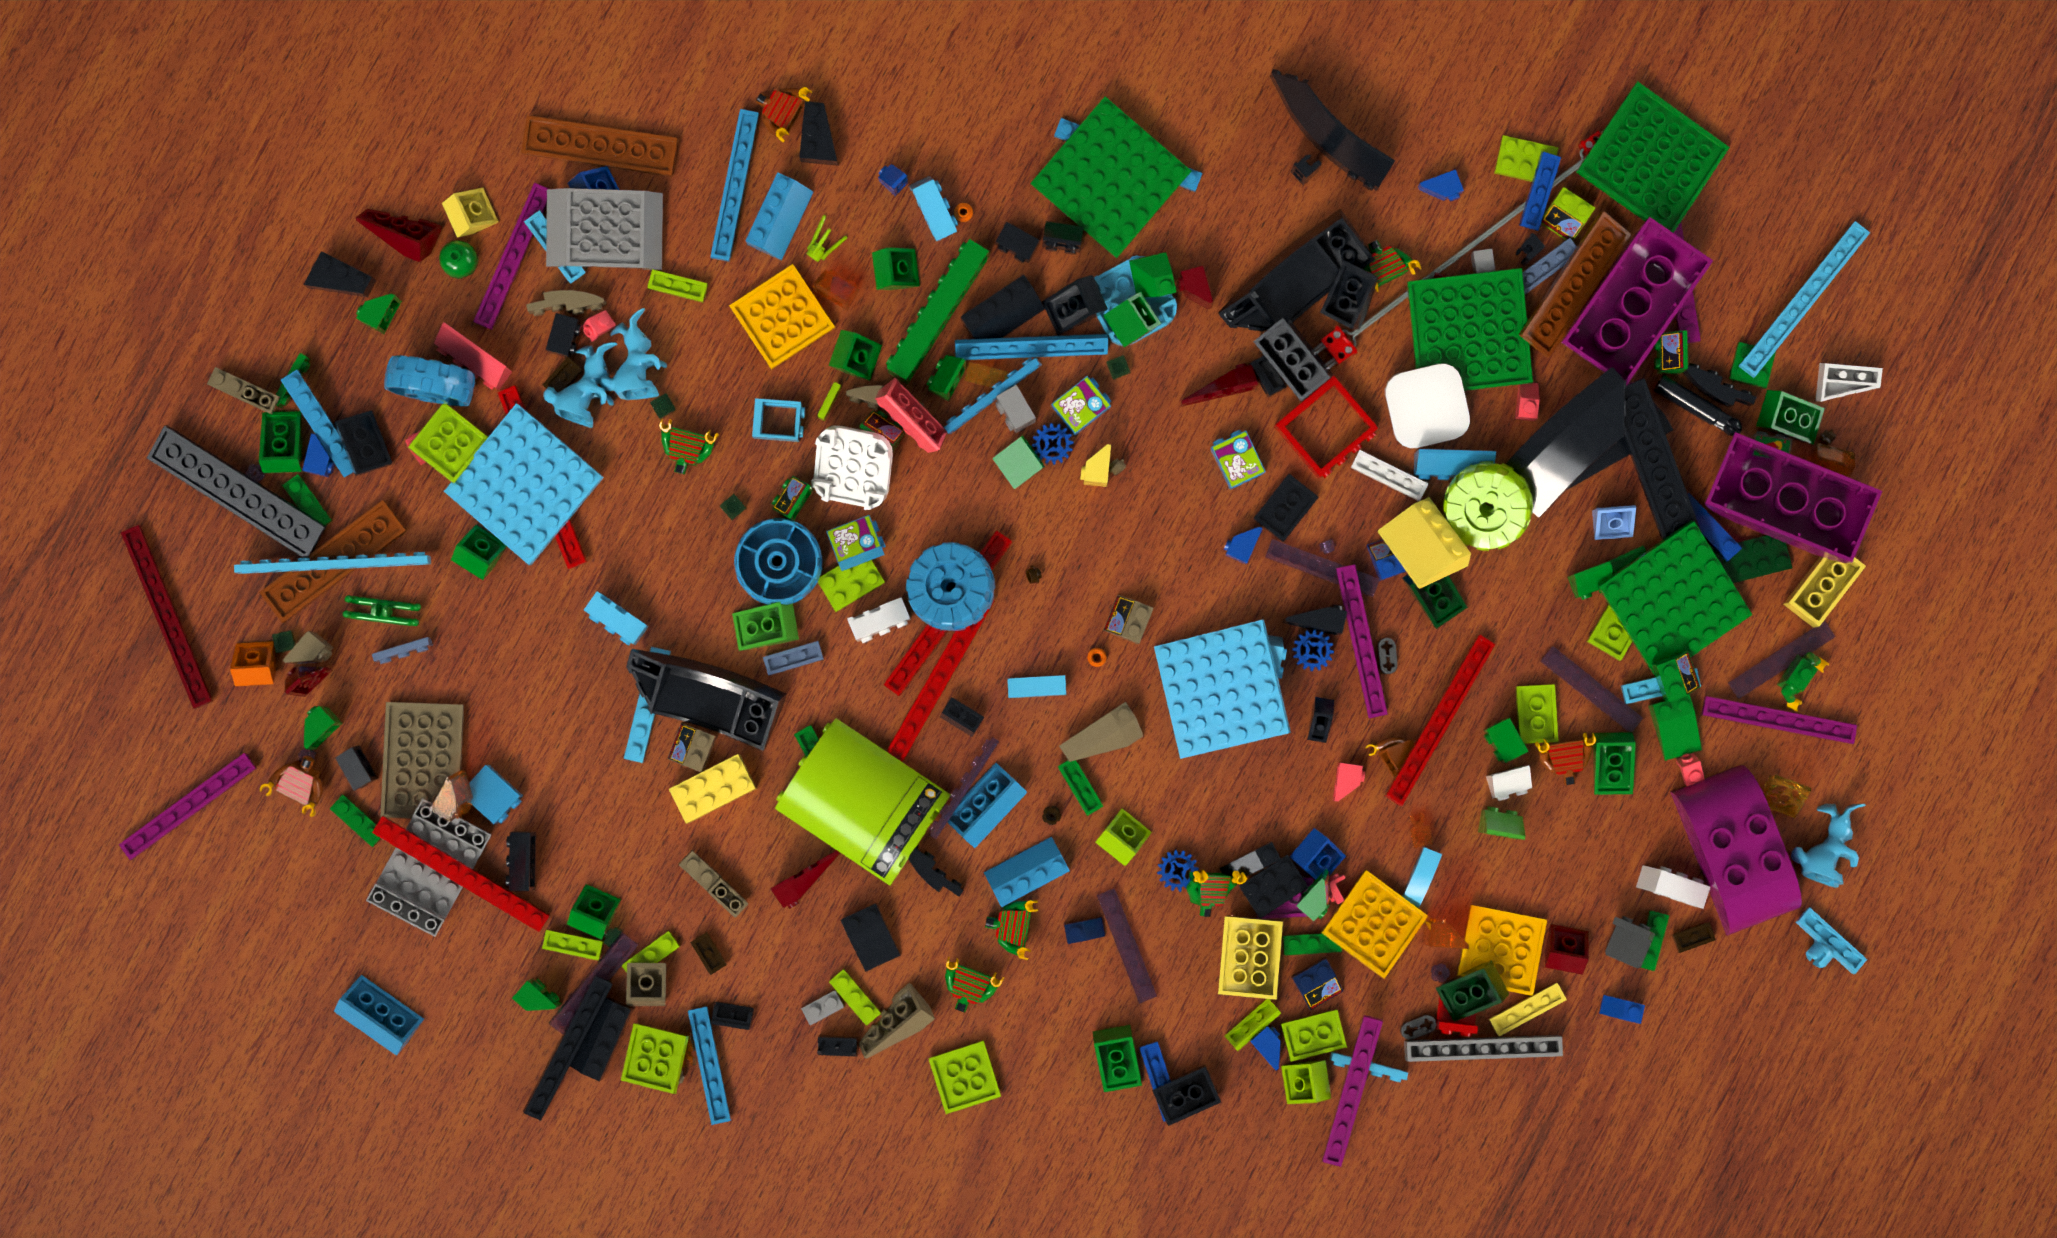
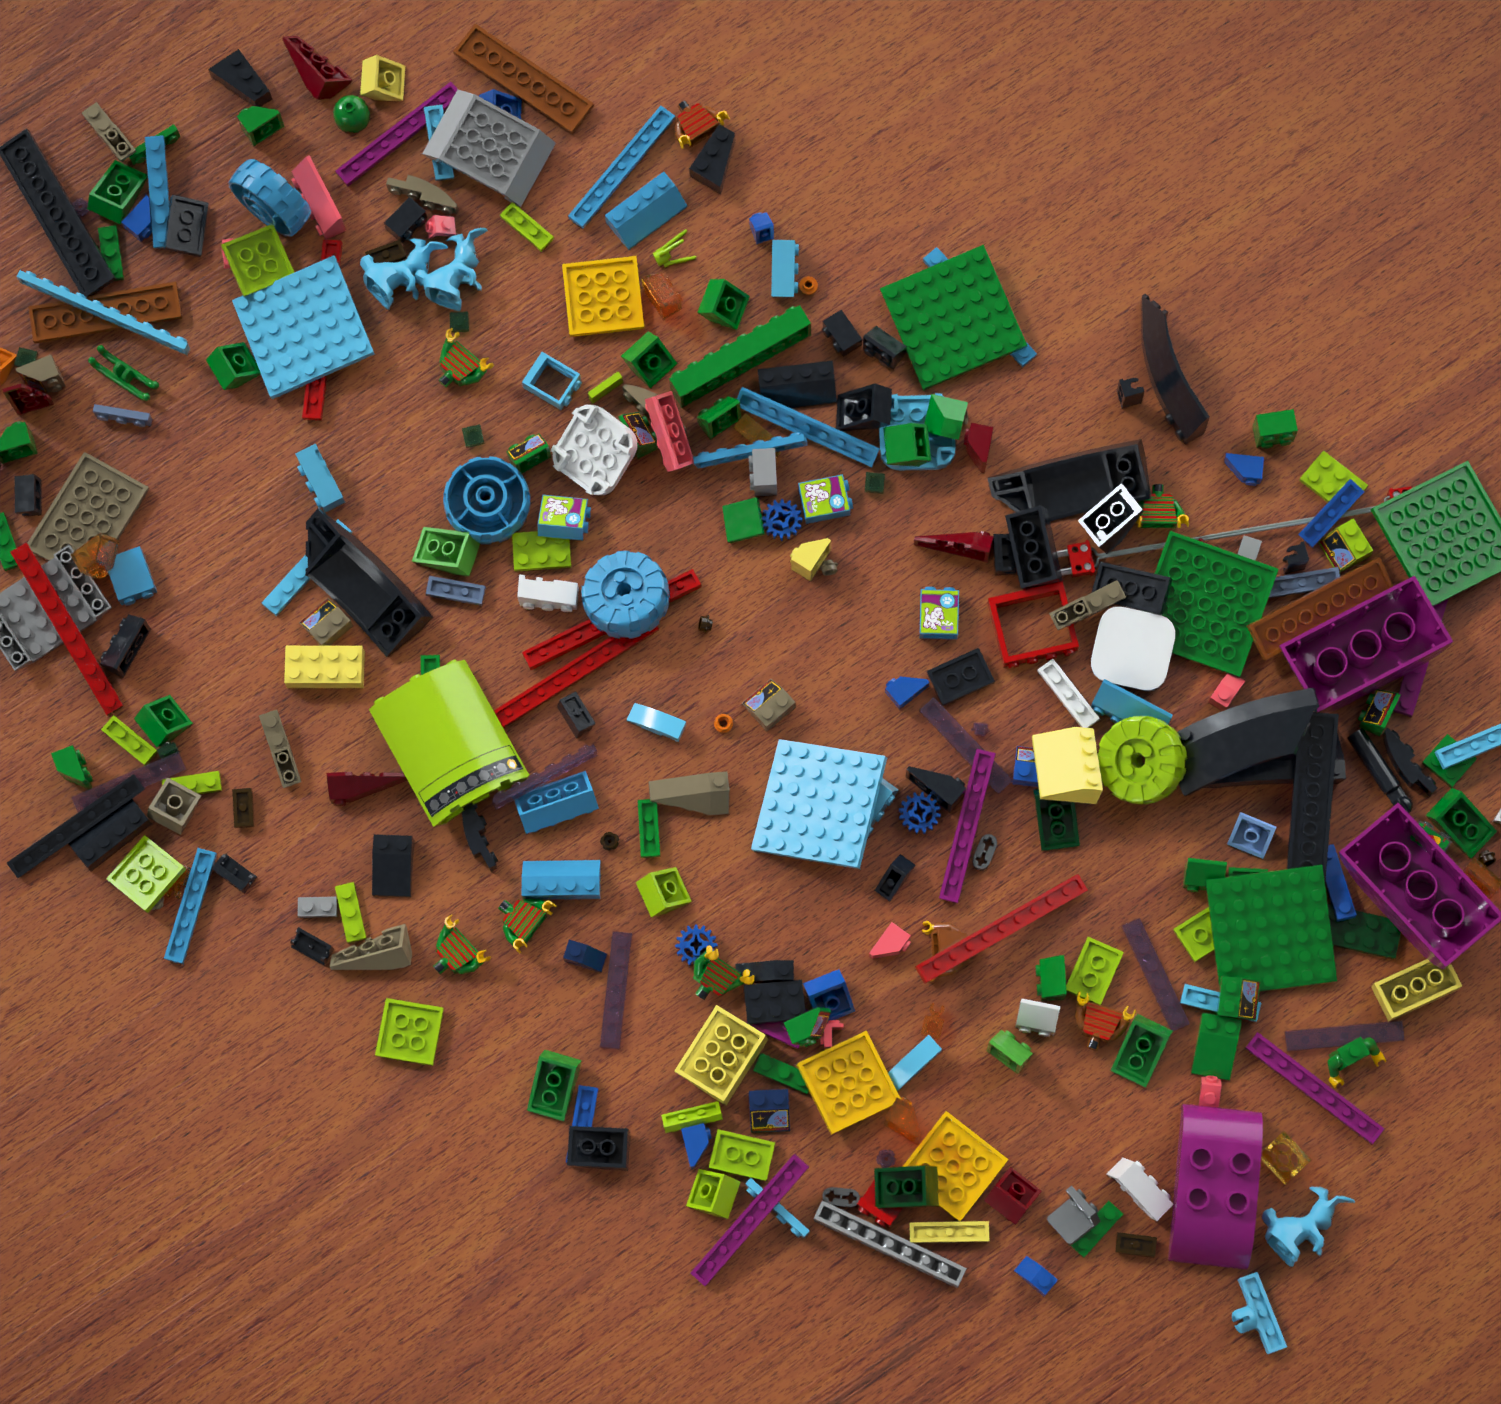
camera: 35 degrees right, 10 degrees down
(1368, 387) = (1087, 605): none -> dark tan slope
(1398, 351) = (1142, 589): none -> black plate
(1452, 137) = (1275, 428): none -> green brick

